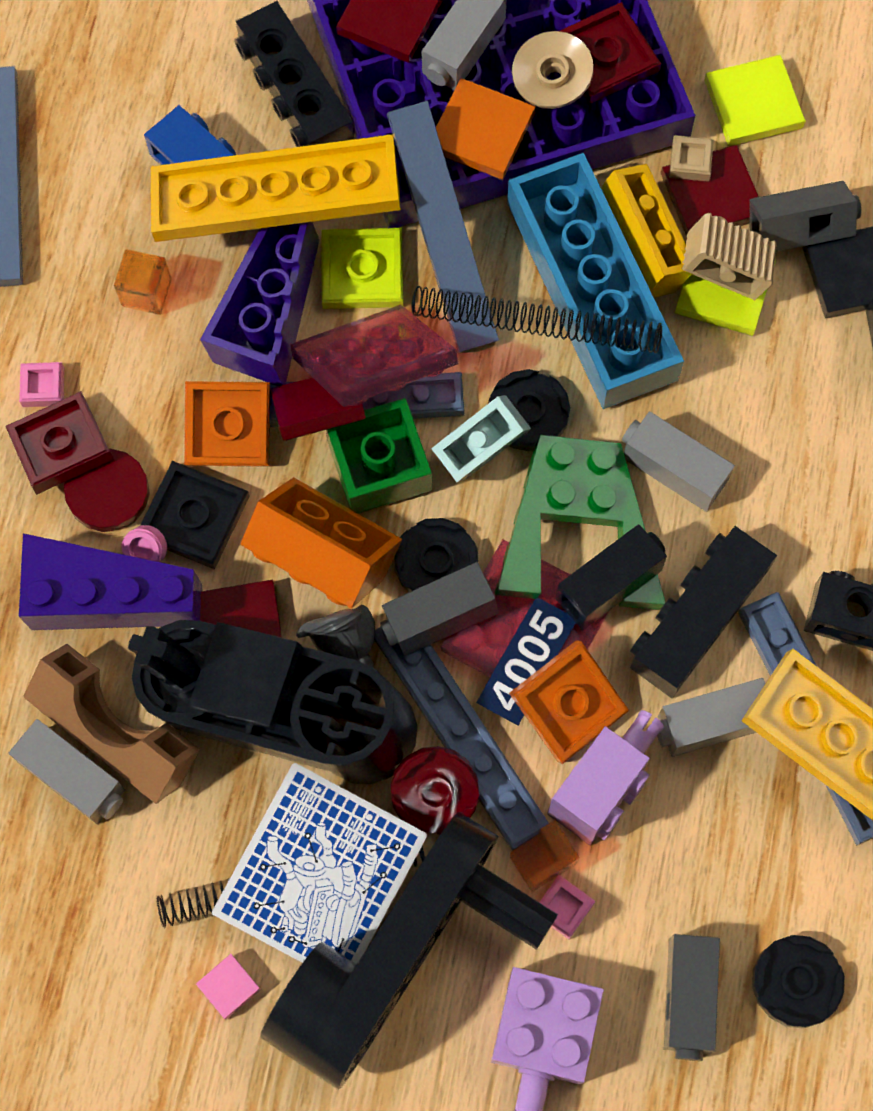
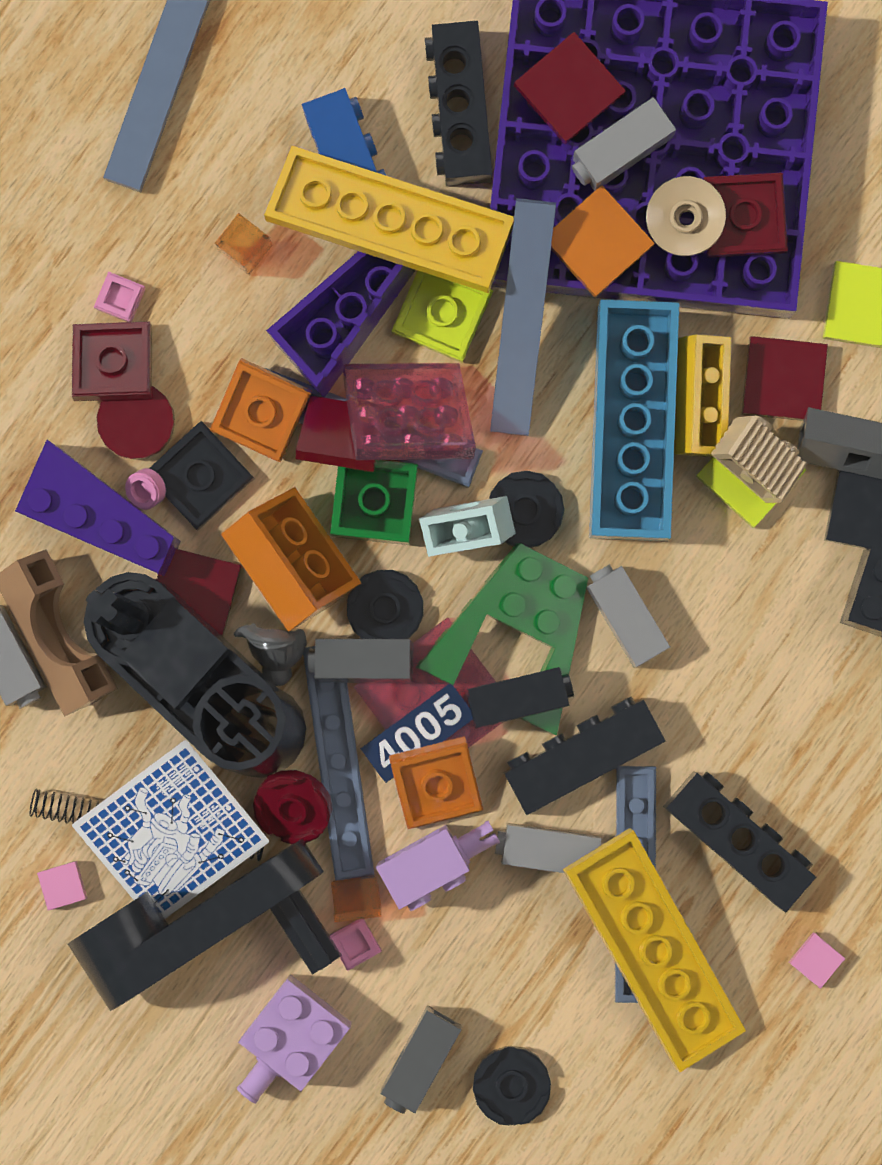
camera: 25 degrees right, 15 degrees up
(658, 329) = (658, 507): black piece -> none
(691, 158) = (779, 341): tan tile -> none

